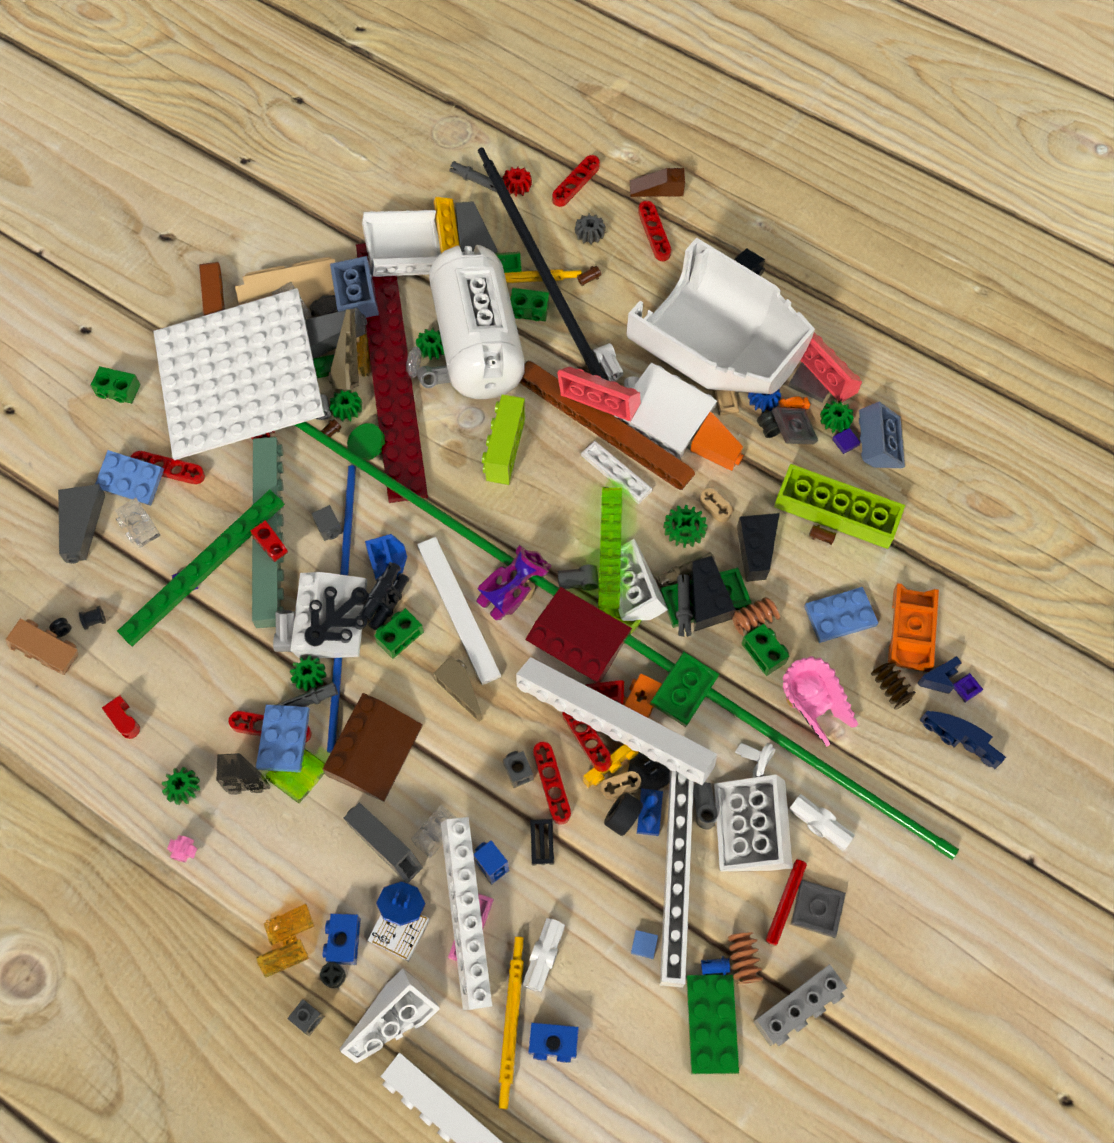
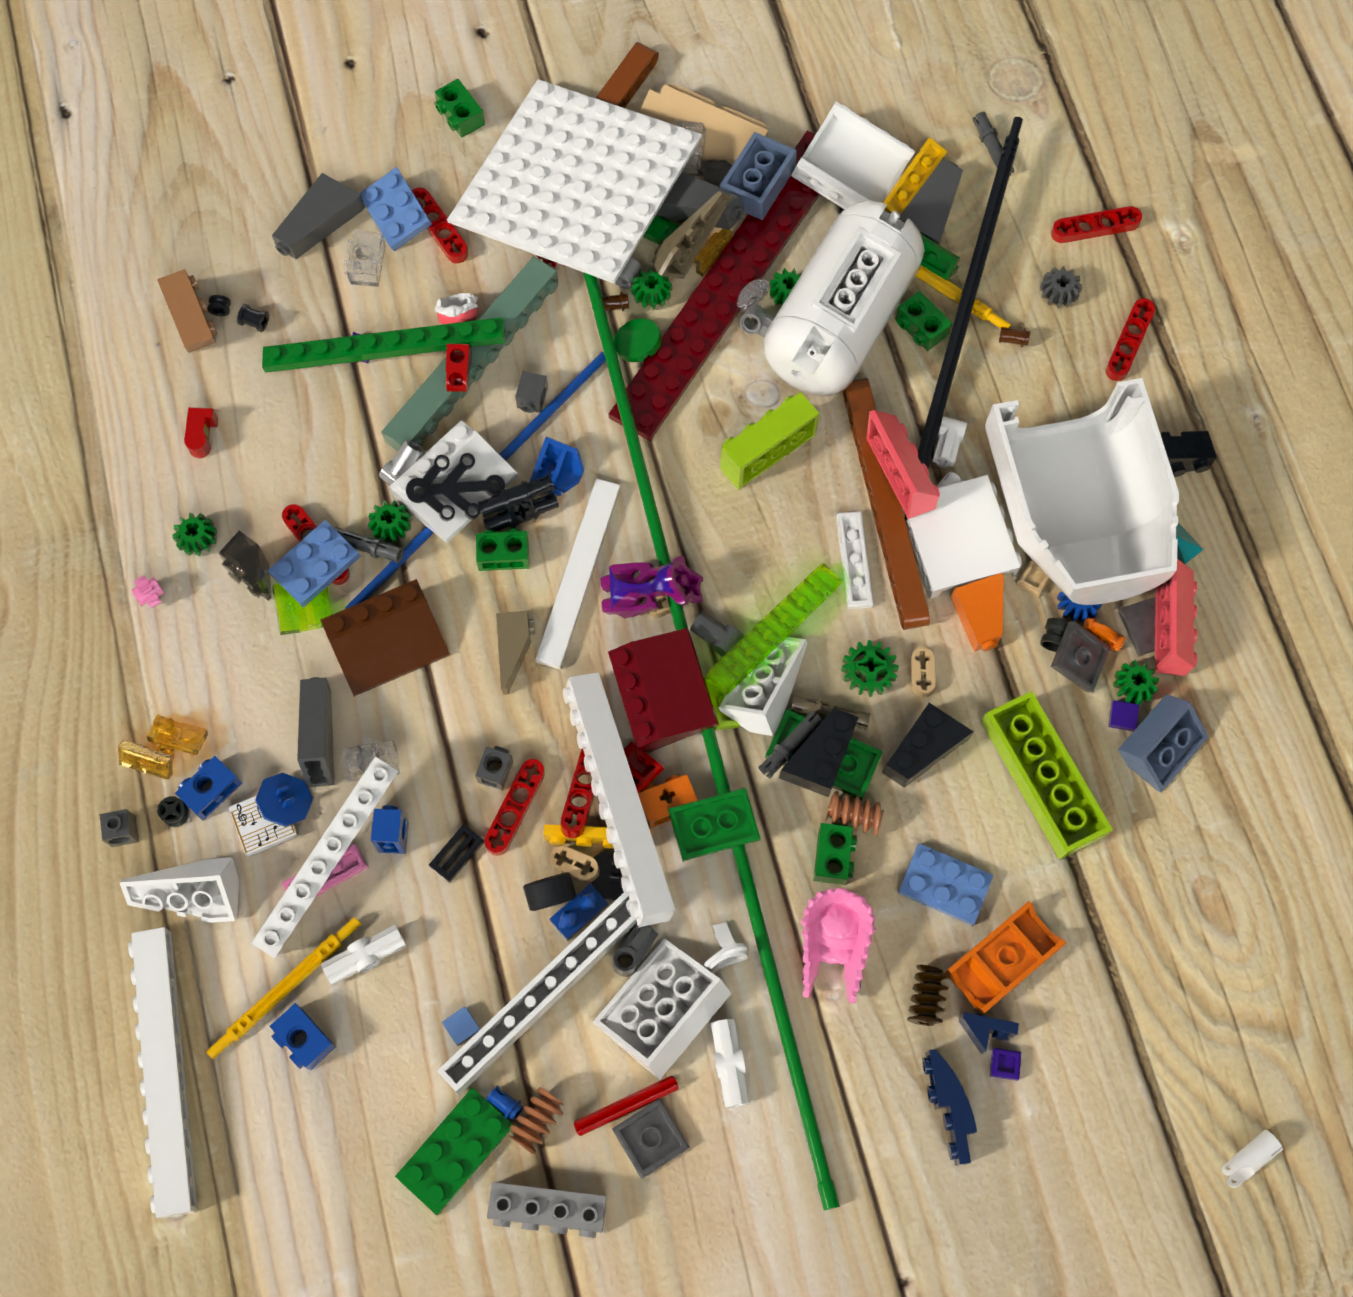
camera: 40 degrees right, 5 degrees up
(231, 508) = (457, 308): none -> white hair
(517, 181) = (1031, 180): red gear -> none
(662, 183) = (1182, 292): reddish brown slope -> none
(822, 534) = (1003, 789): reddish brown pin -> none

